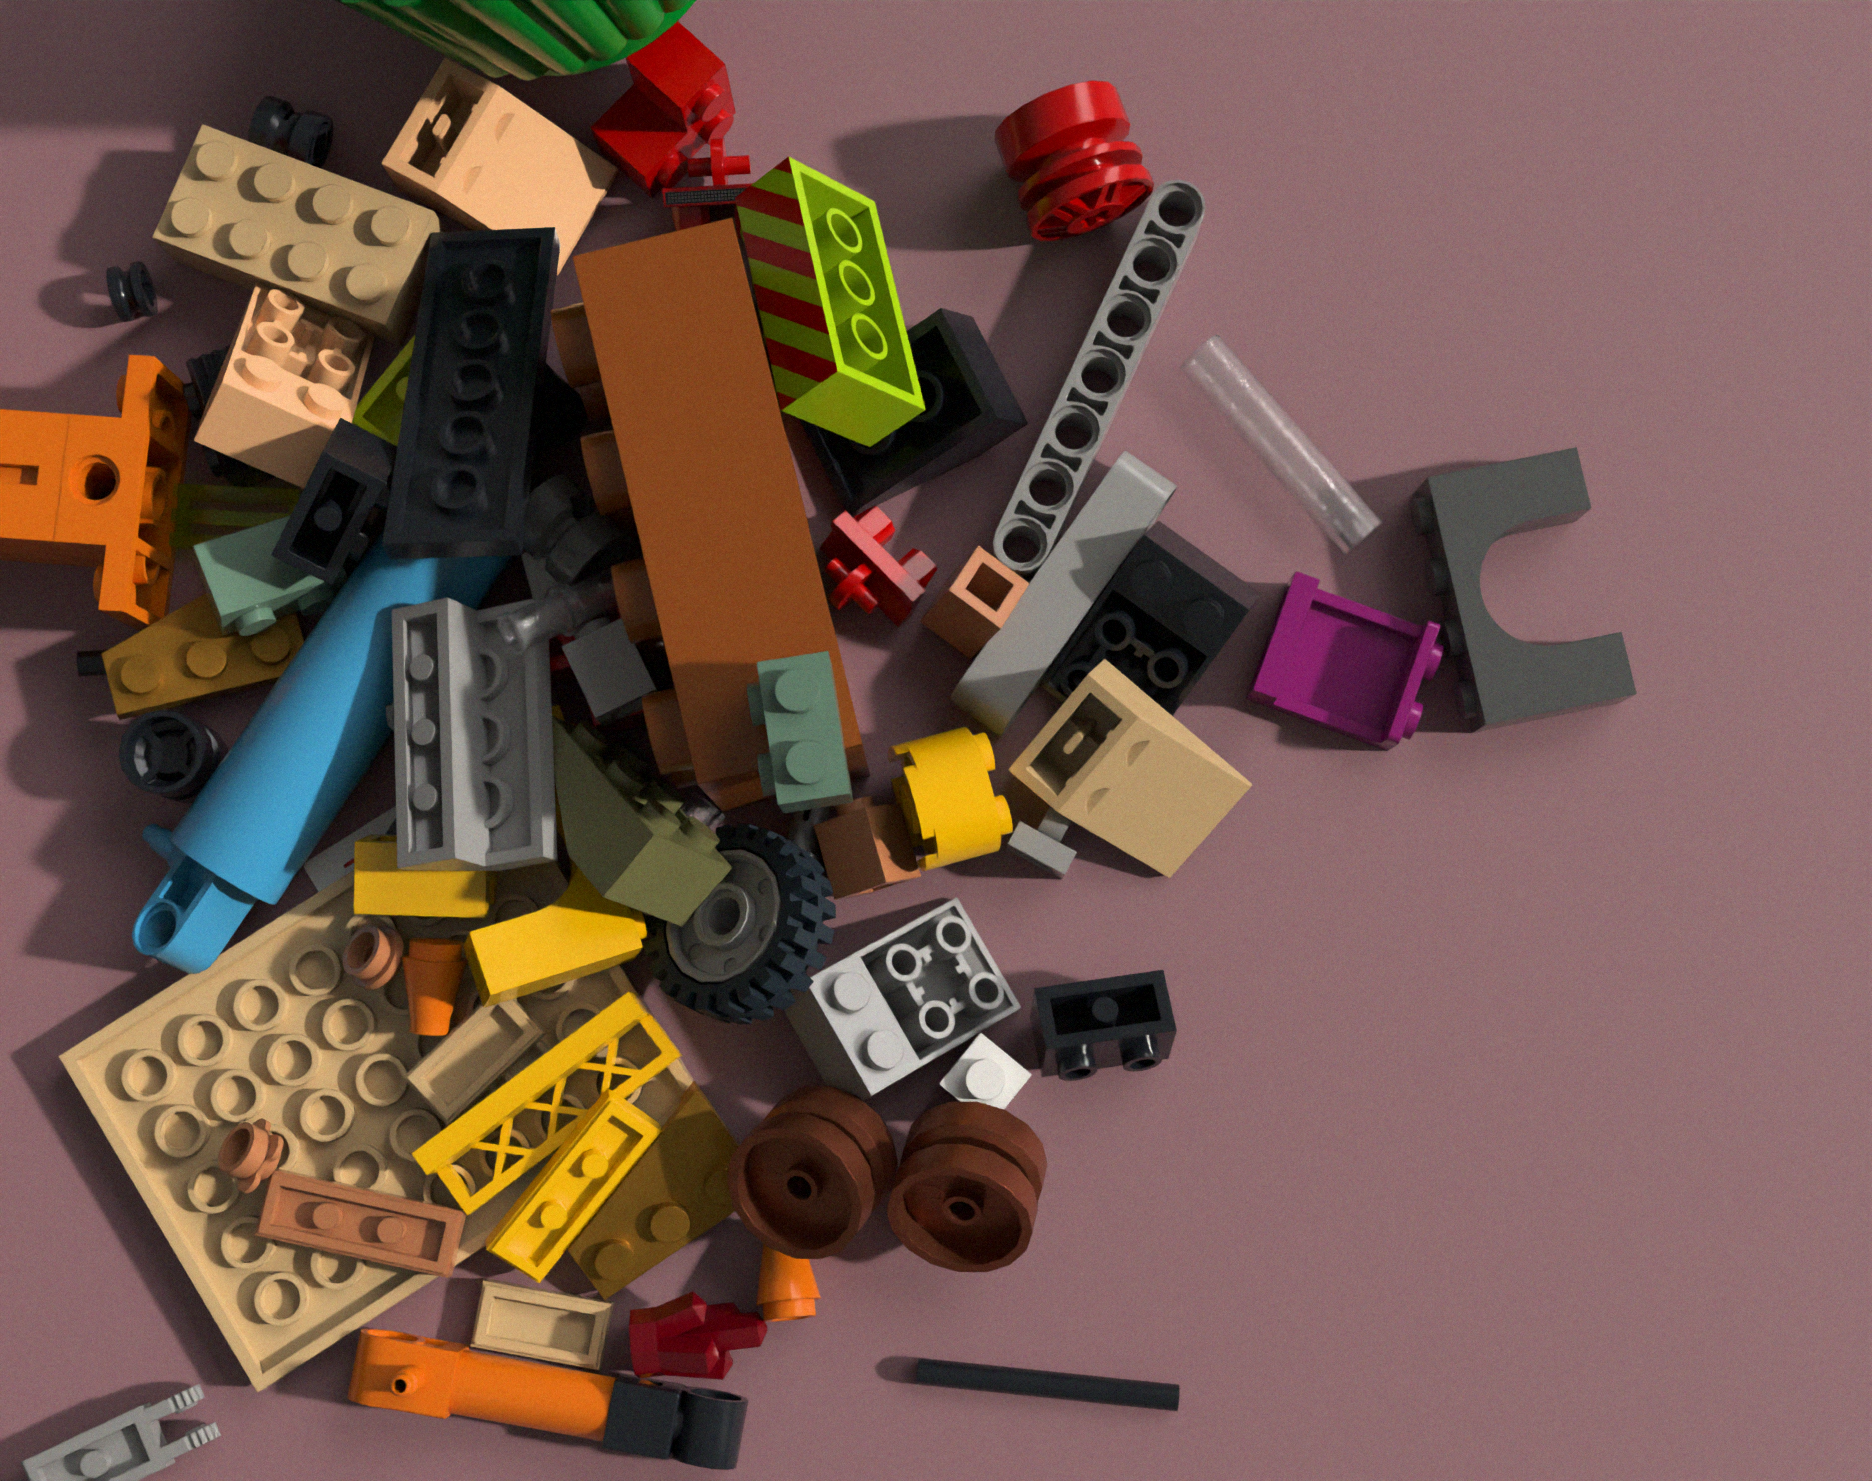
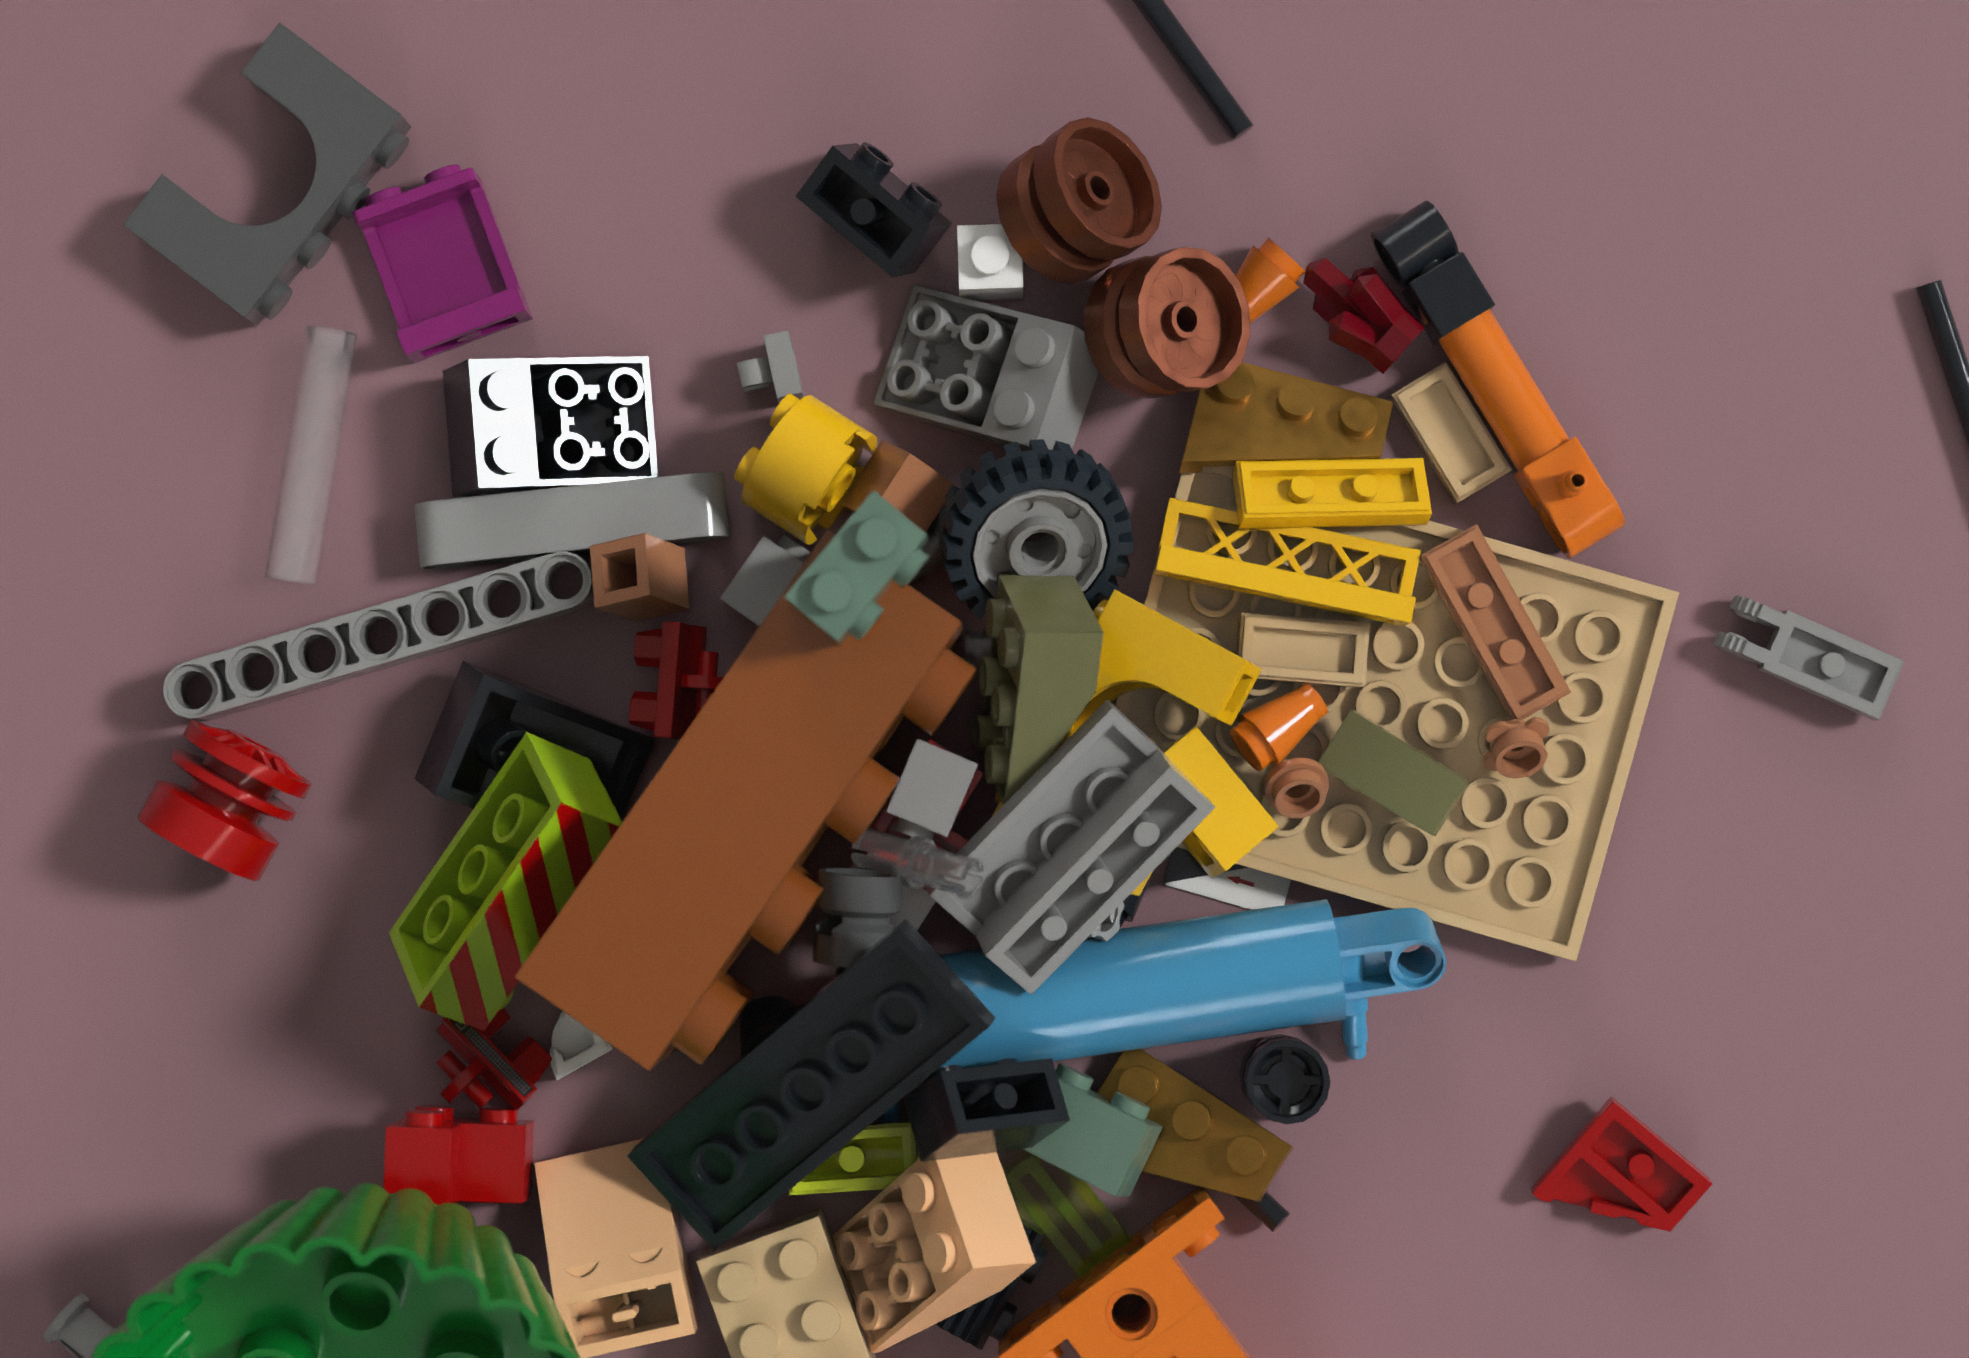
camera: 135 degrees left, 5 degrees up
(317, 1039) = (1393, 773): none -> olive slope
(884, 698) = (764, 577): none -> light grey brick
(1129, 771) = (667, 351): tan slope -> none

